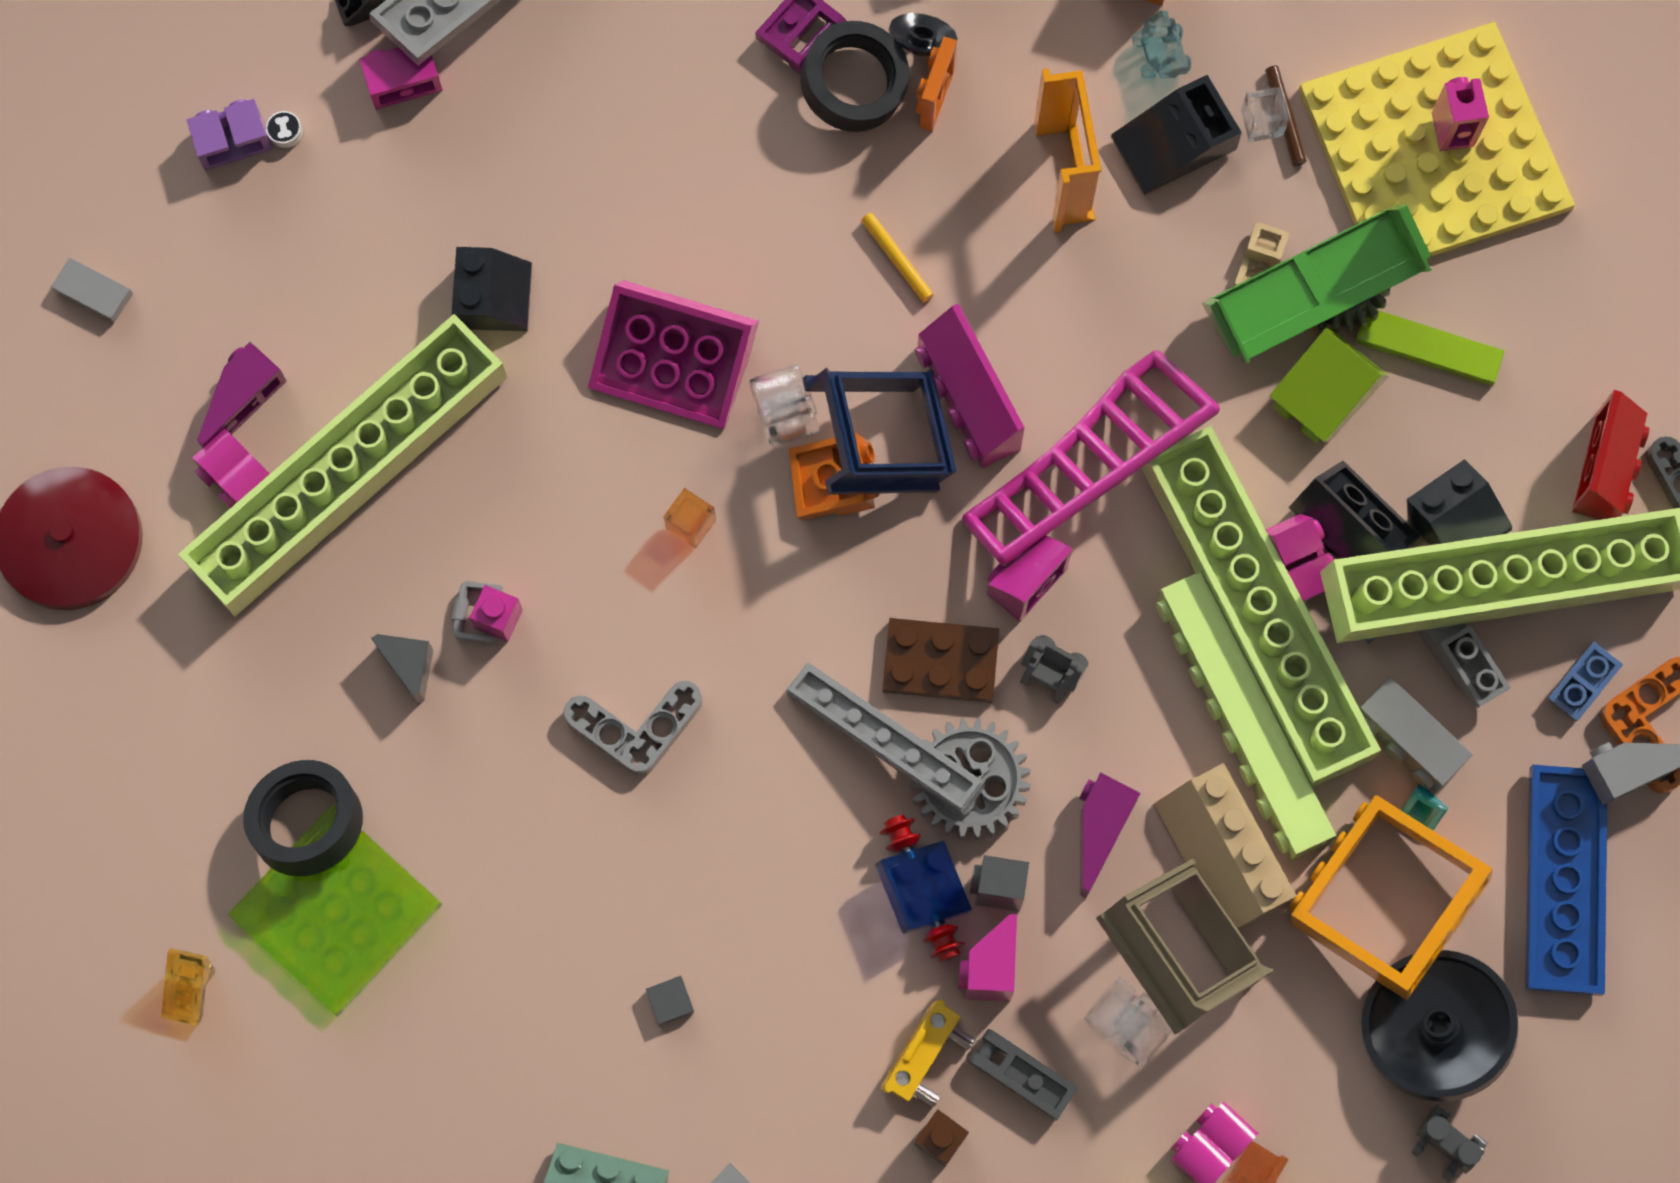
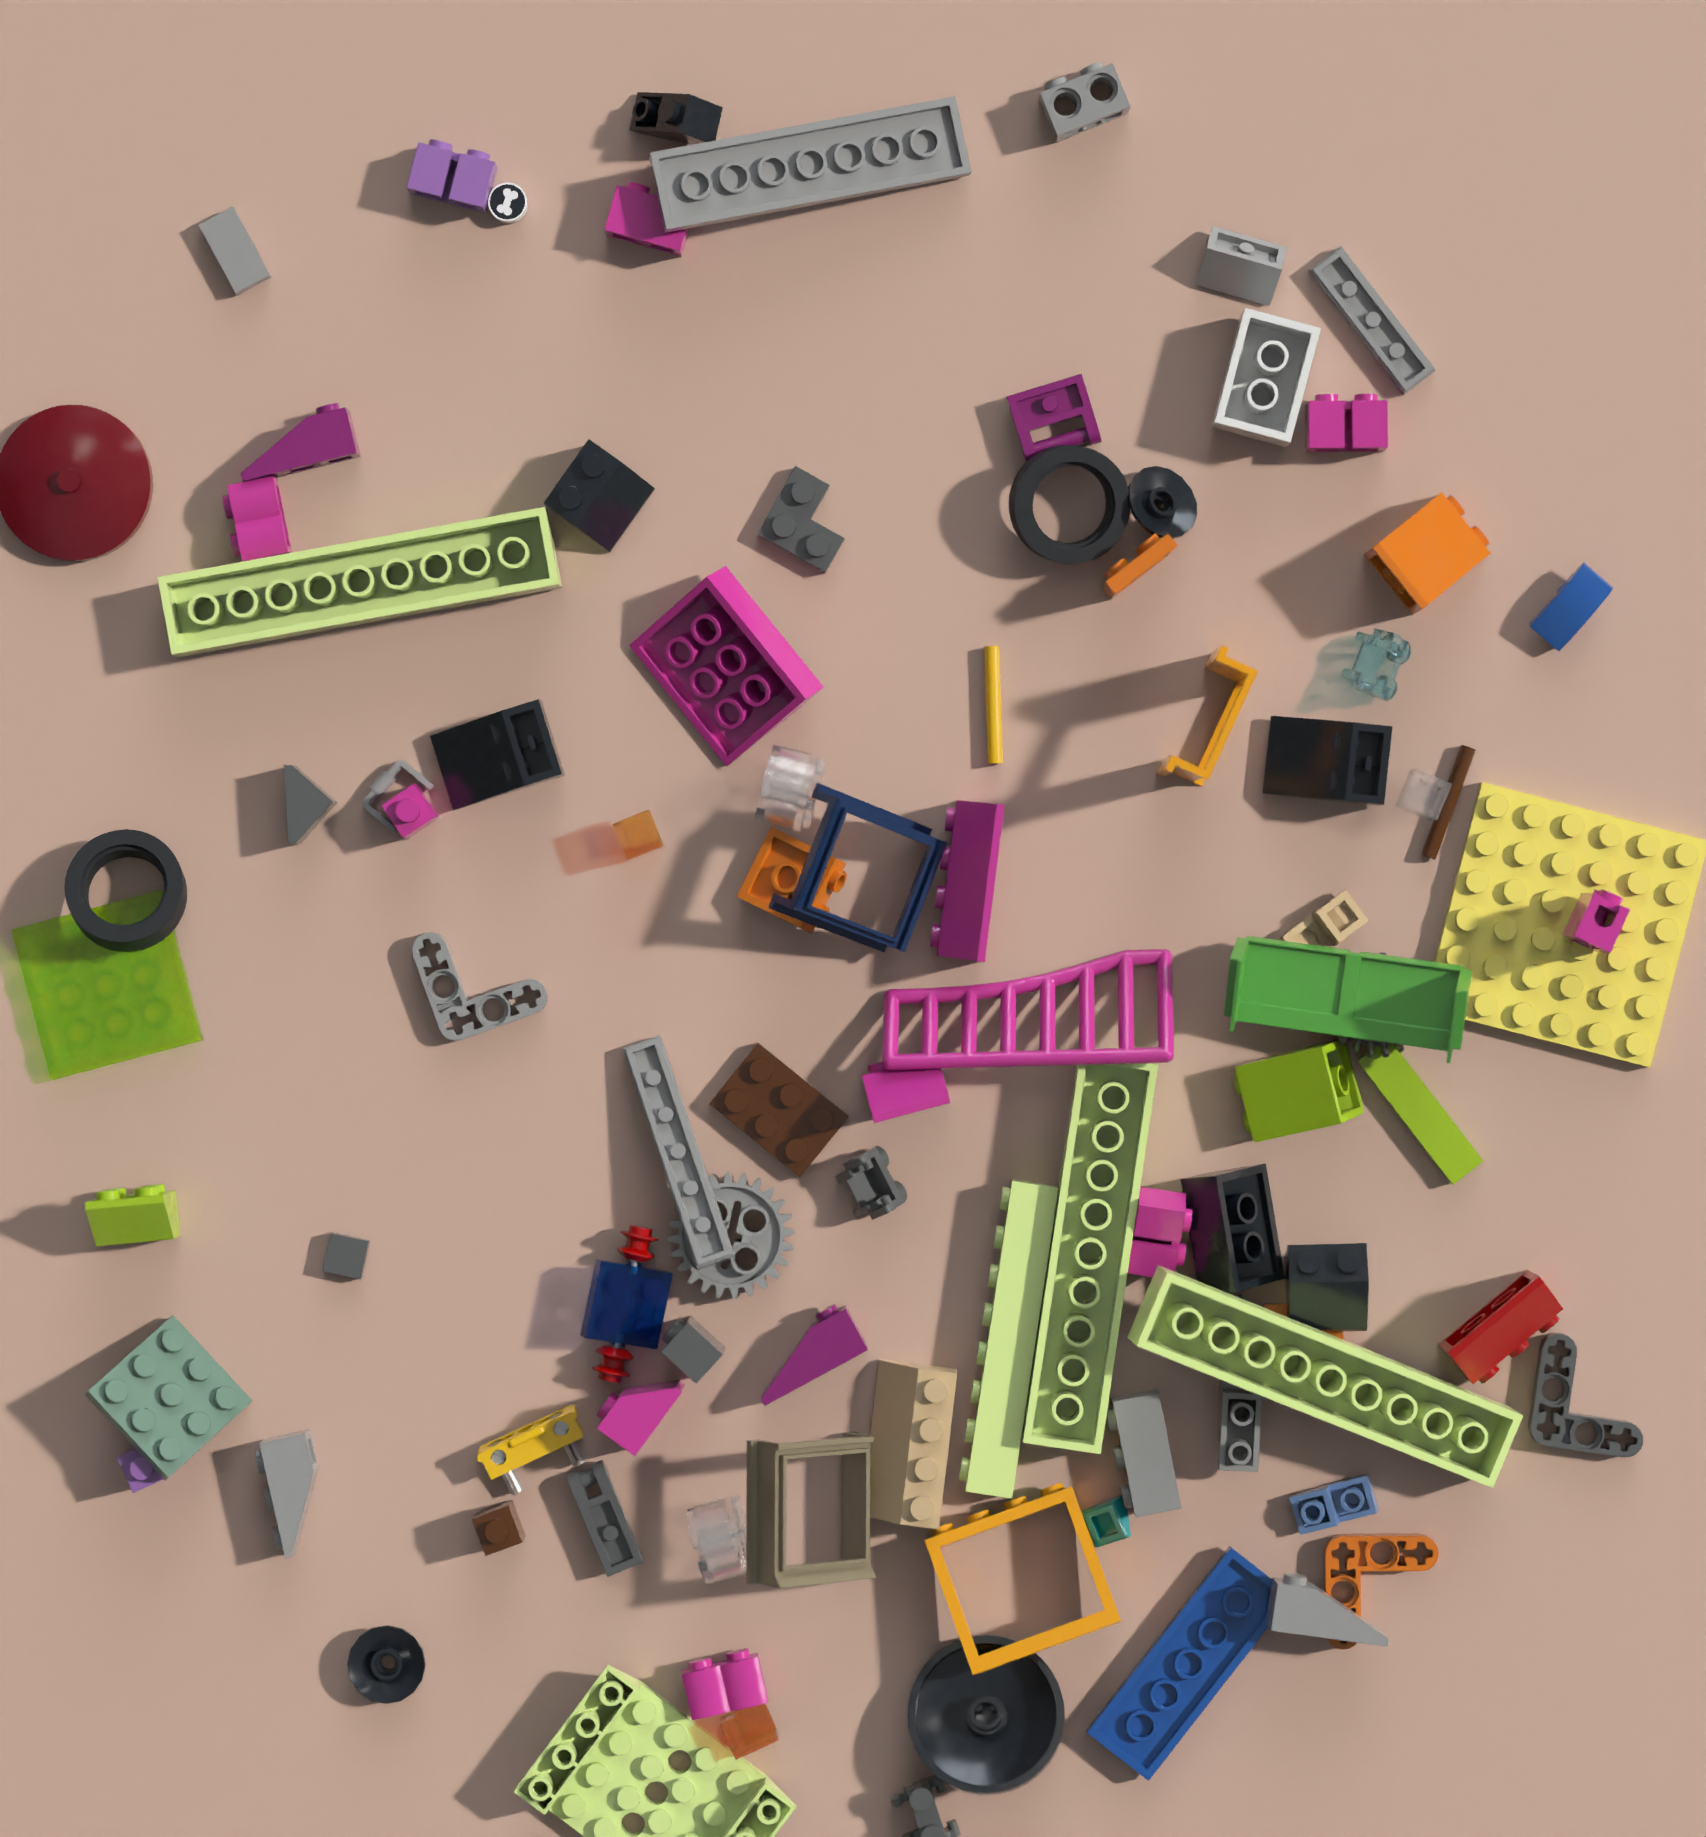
camera: 30 degrees right, 15 degrees up
(472, 1077) = (133, 1218): none -> lime slope
(538, 526) = (497, 754): none -> black slope
(655, 224) = (791, 524): none -> dark grey plate

